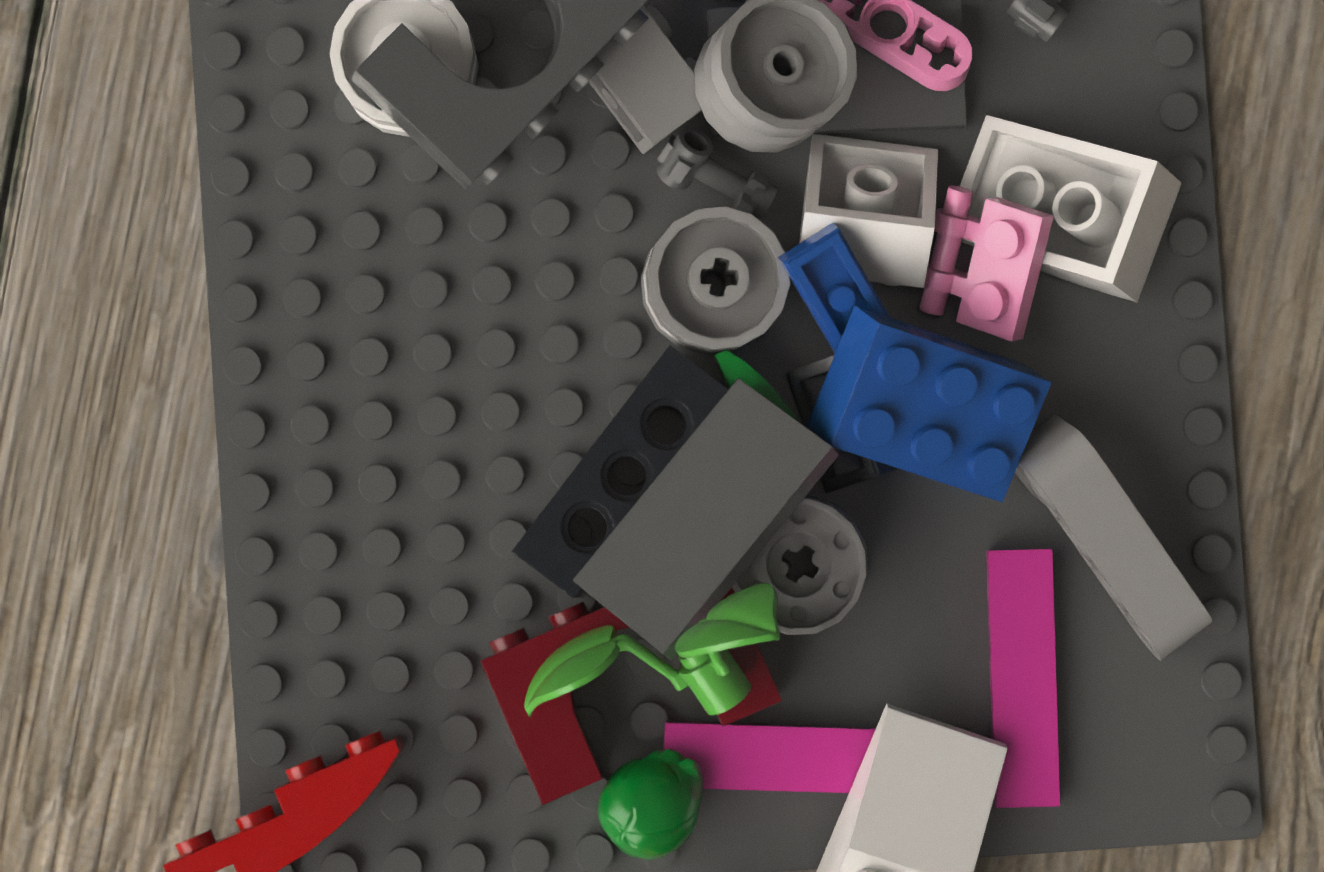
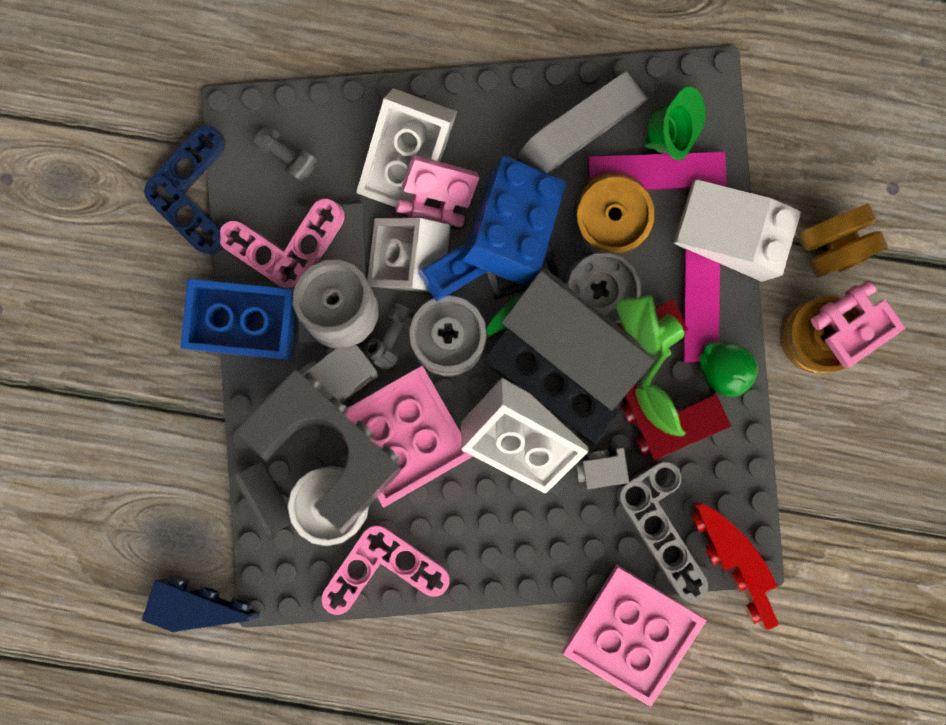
camera: 90 degrees left, 0 degrees up
(157, 622) = (633, 635): none -> bright pink plate
(304, 141) = (372, 559): none -> bright pink beam
(342, 685) = (667, 534): none -> light grey beam
(465, 565) = (602, 469): none -> light grey brick
(525, 412) = (520, 437): none -> white slope
(545, 218) = (416, 427): none -> bright pink plate
(907, 588) = (635, 208): none -> pearl gold wheel
(1110, 717) = (677, 125): none -> green piece

